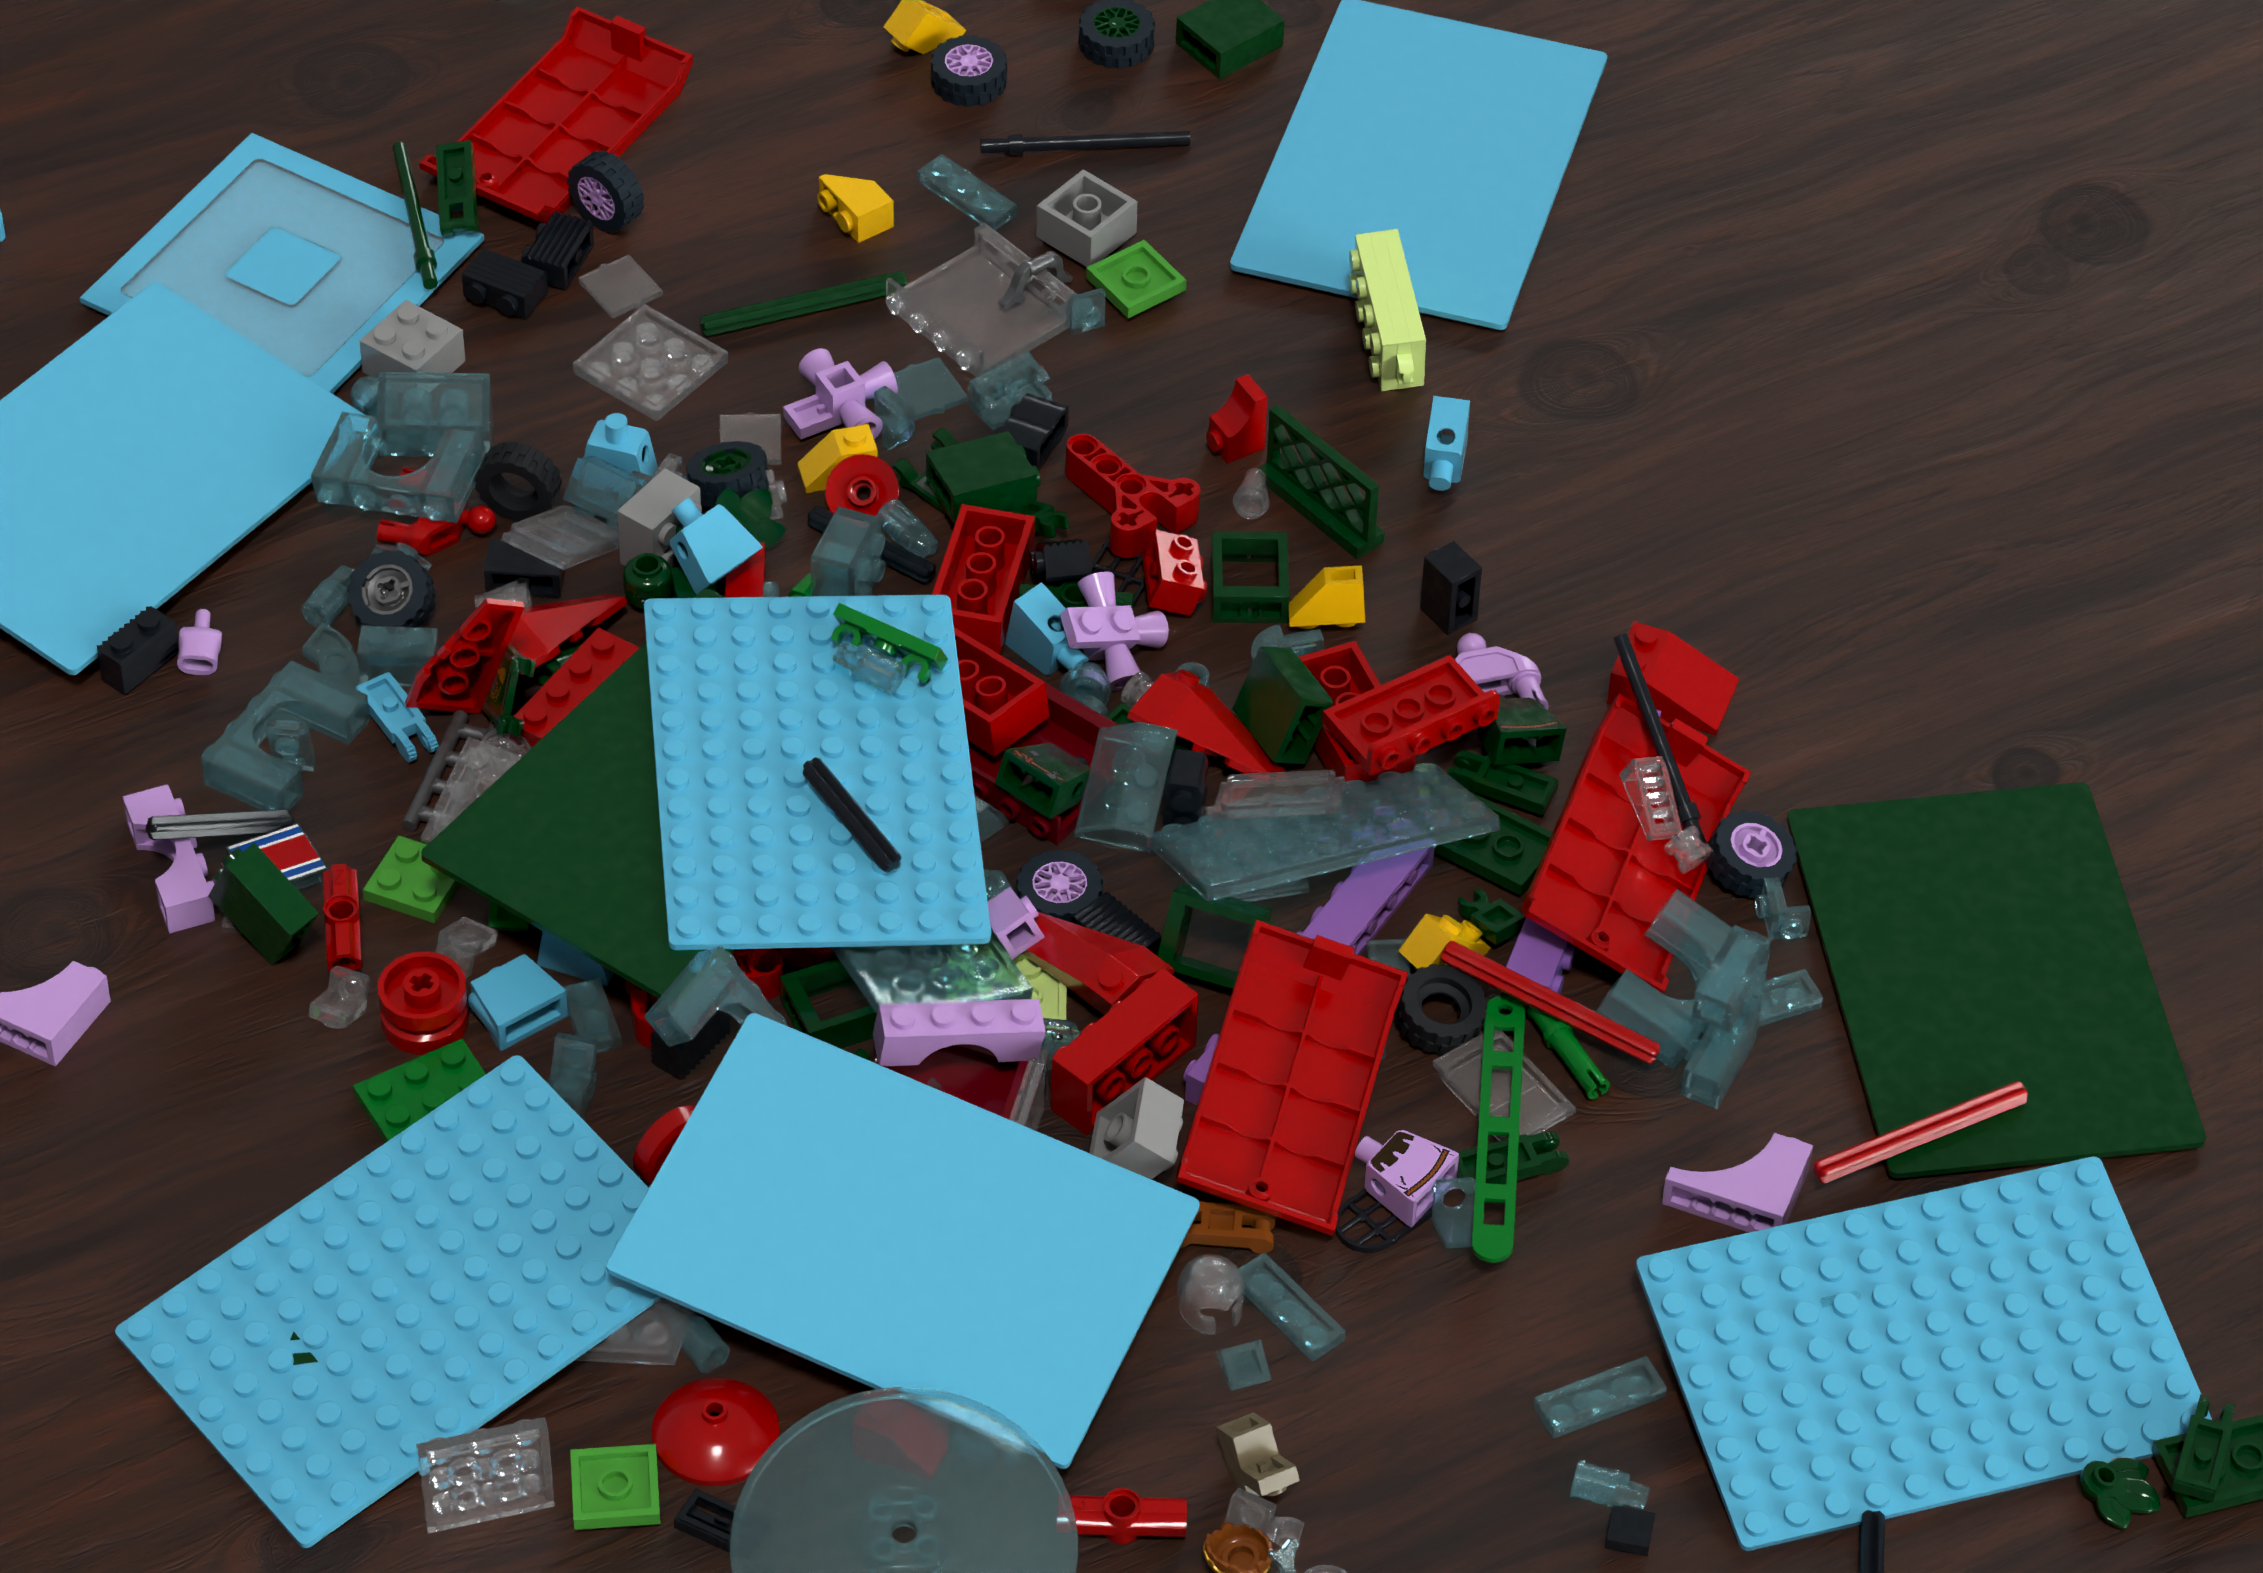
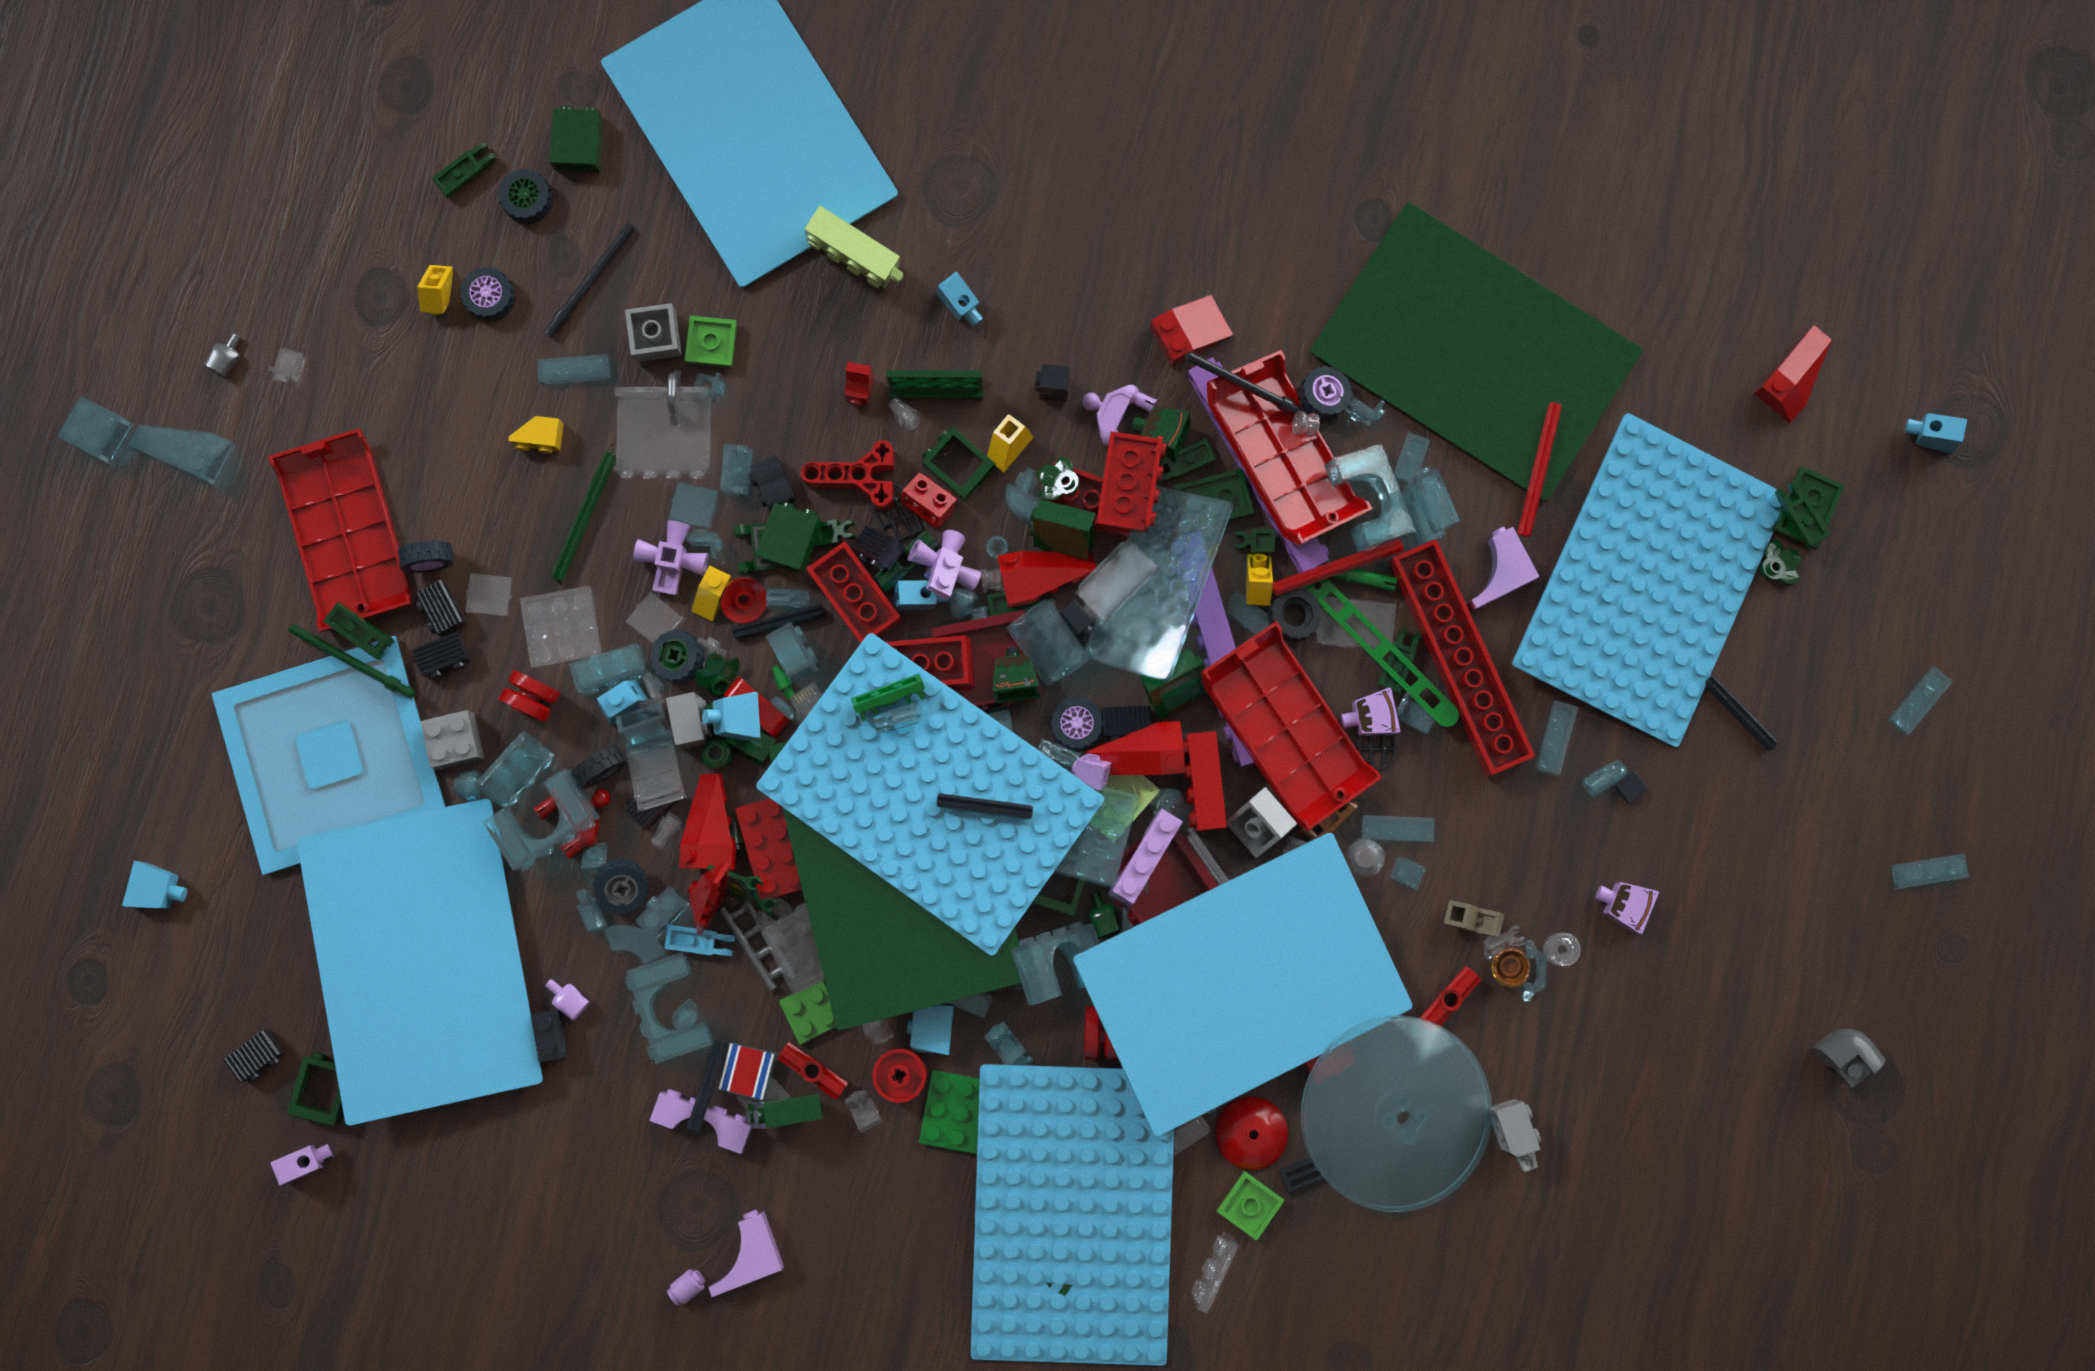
camera: 50 degrees left, 35 degrees up
(532, 373) = (529, 696): none -> red wheel
(667, 429) = (609, 669): none -> clear light blue brick
(1335, 652) = (1054, 479): none -> dark green plate
(1581, 1215) = (1461, 658): none -> red brick
(1653, 775) = (1258, 417): clear slope -> none

